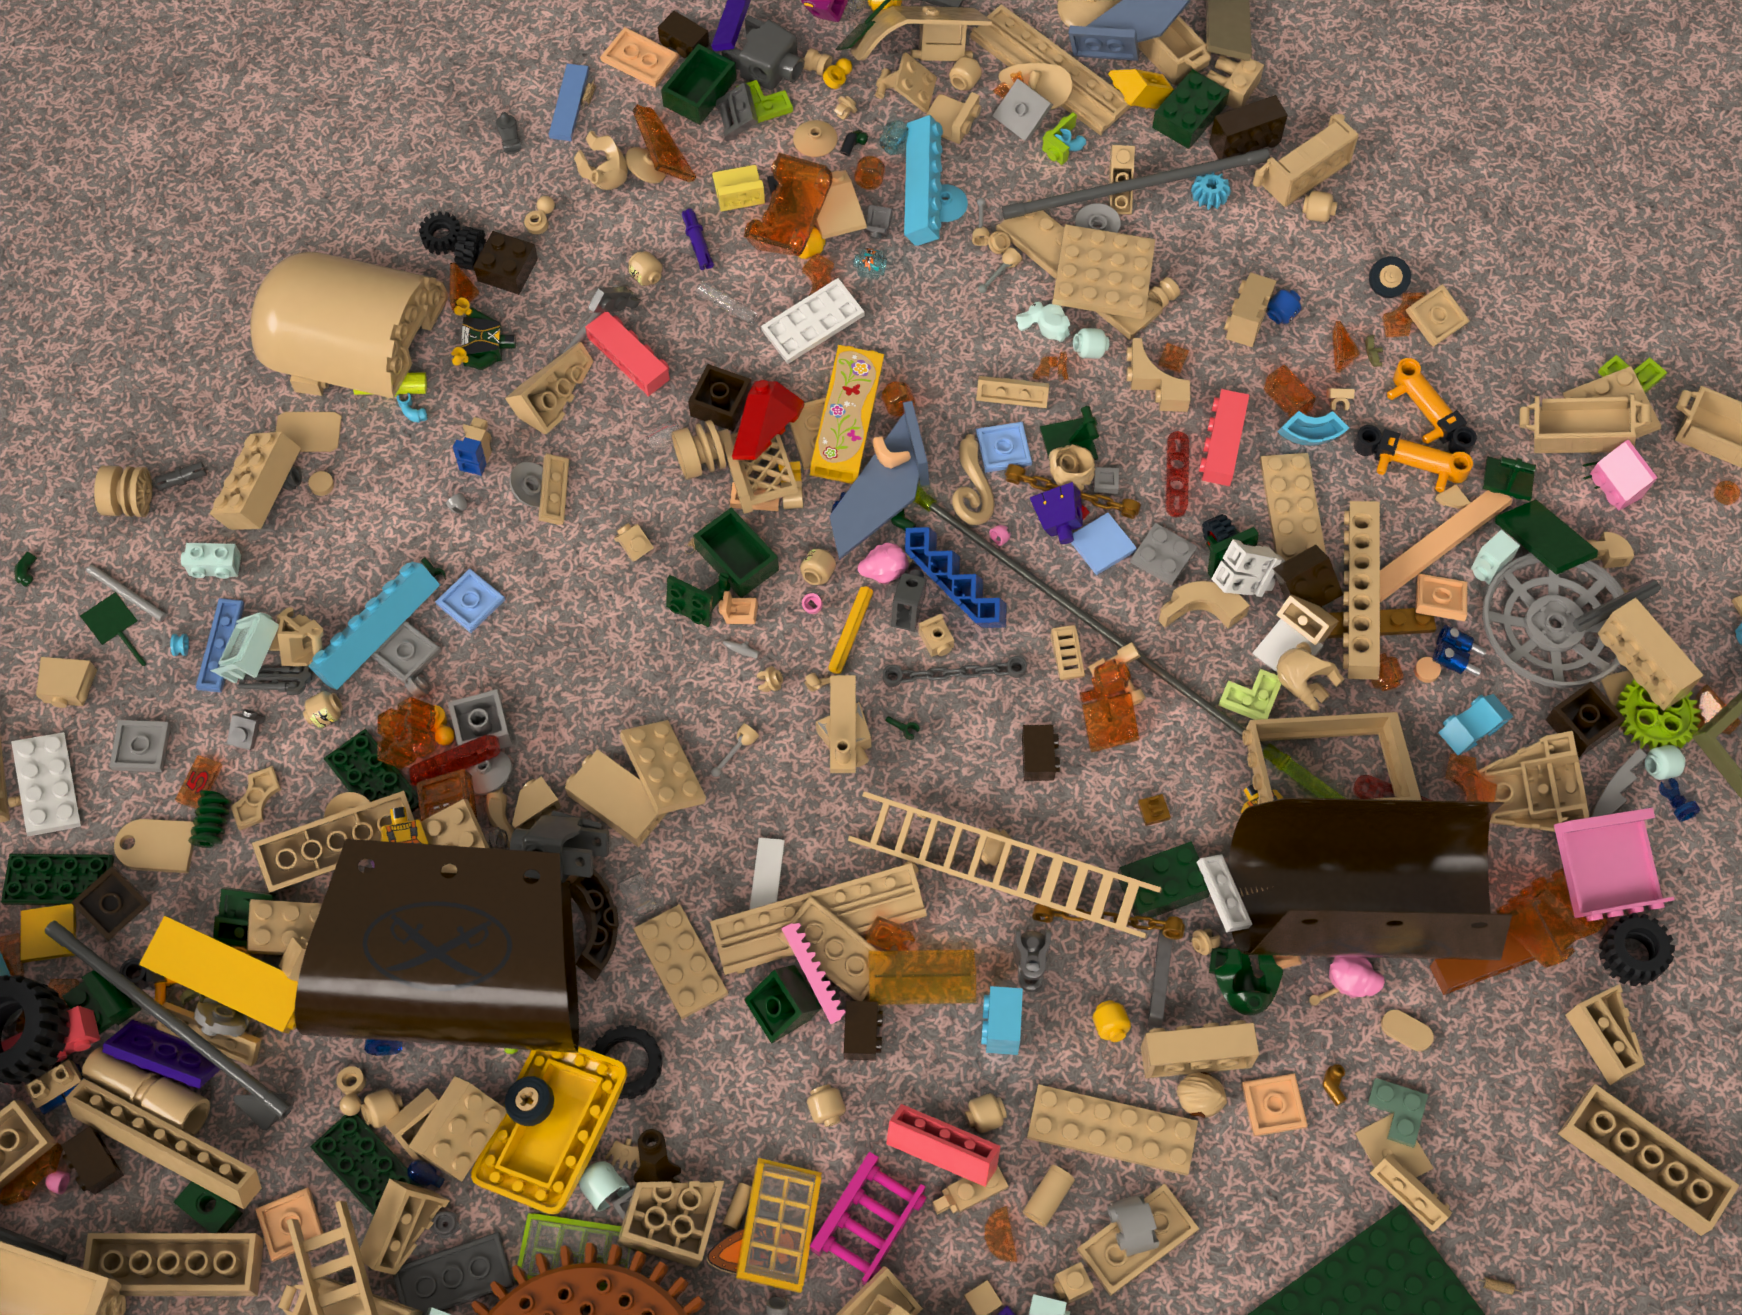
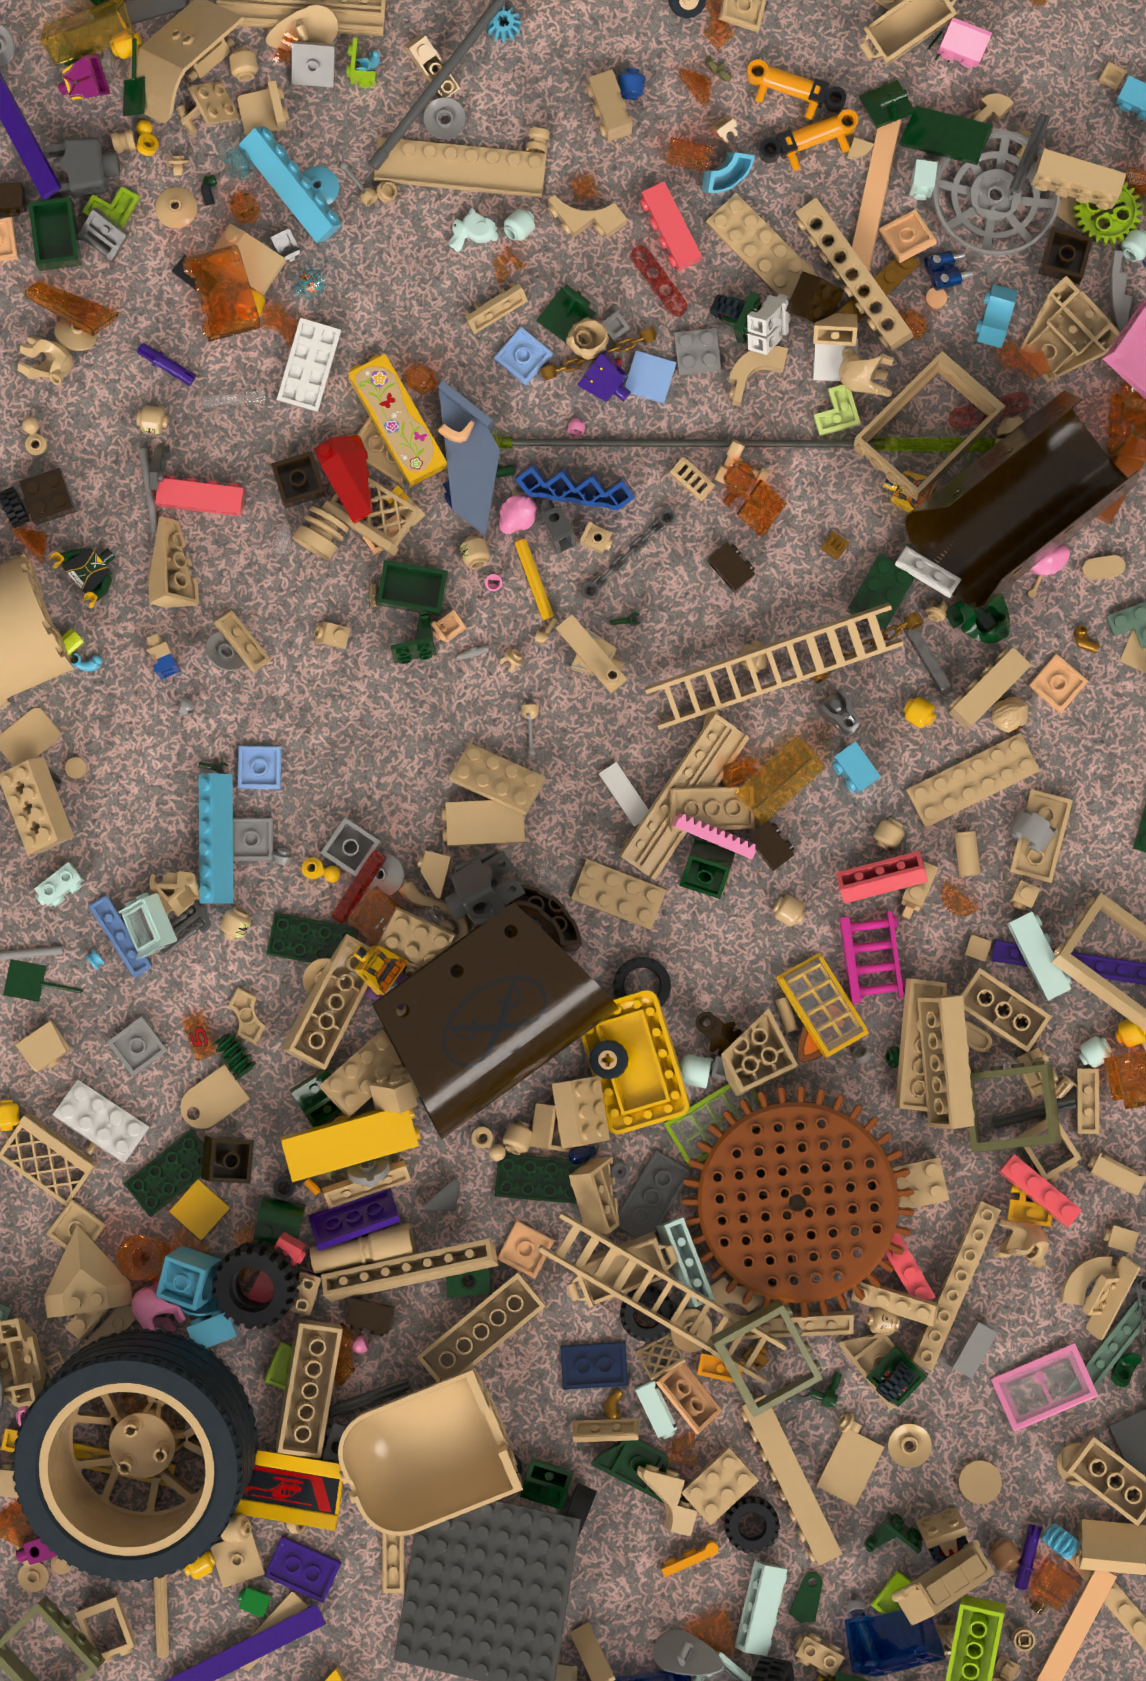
camera: 40 degrees left, 20 degrees up
(244, 729) = (195, 978): flat silver bracket -> none
(267, 1097) = (224, 1204): dark grey piece -> none
(406, 733) = (311, 895): clear orange brick -> none
(624, 1153) = (689, 1040): tan piece -> none
(738, 188) = (158, 296): light yellow bracket -> none
(969, 460) = (511, 388): tan plant -> none
(1009, 260) = (405, 199): hinge -> none
(1104, 271) = (484, 159): tan plate -> none

